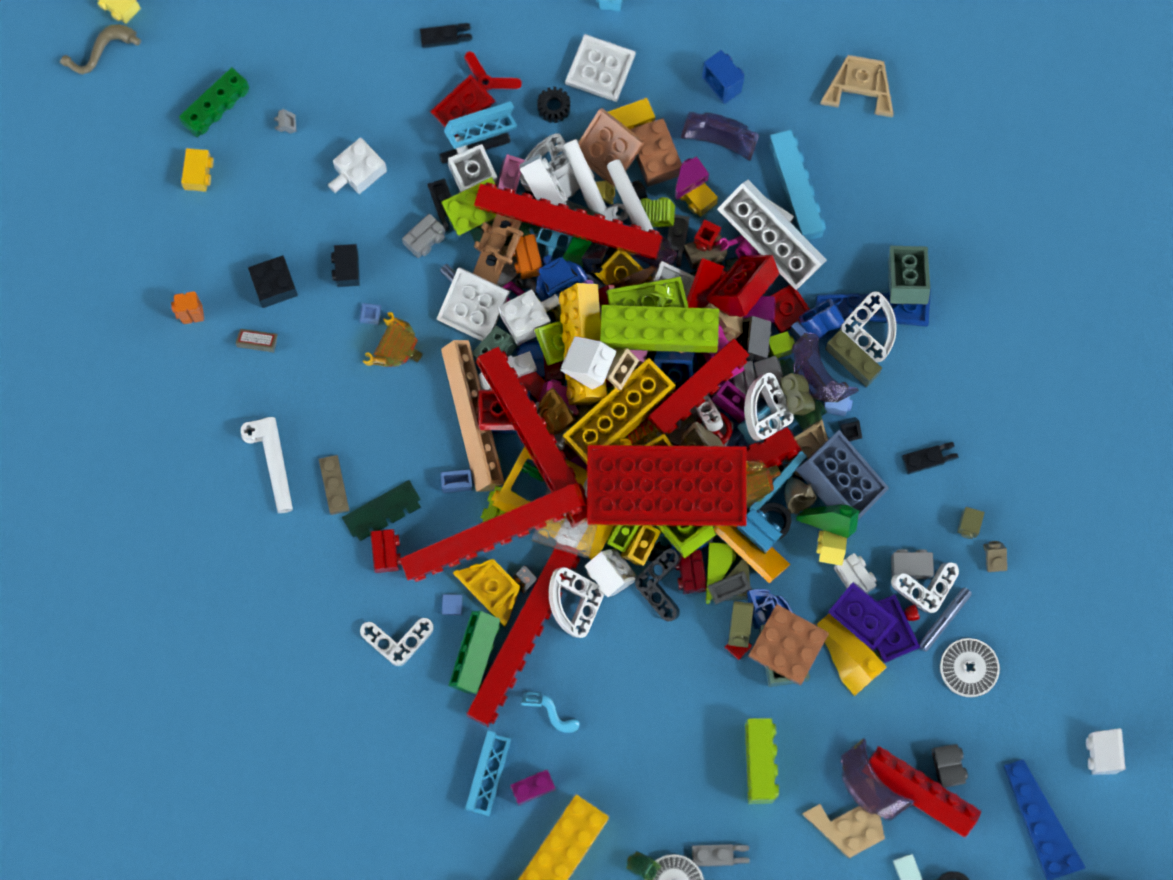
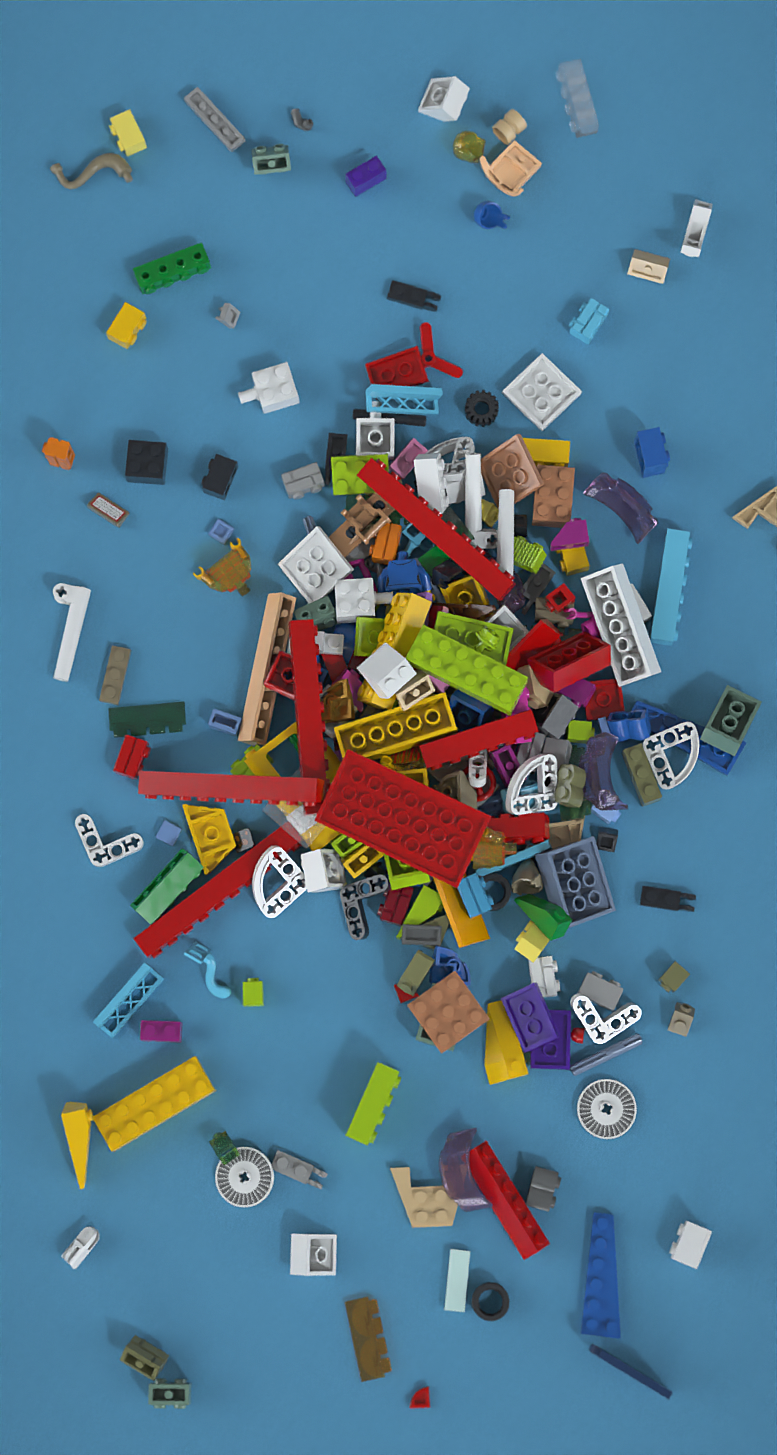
camera: 30 degrees right, 5 degrees up
(600, 712) = (253, 993): none -> lime brick

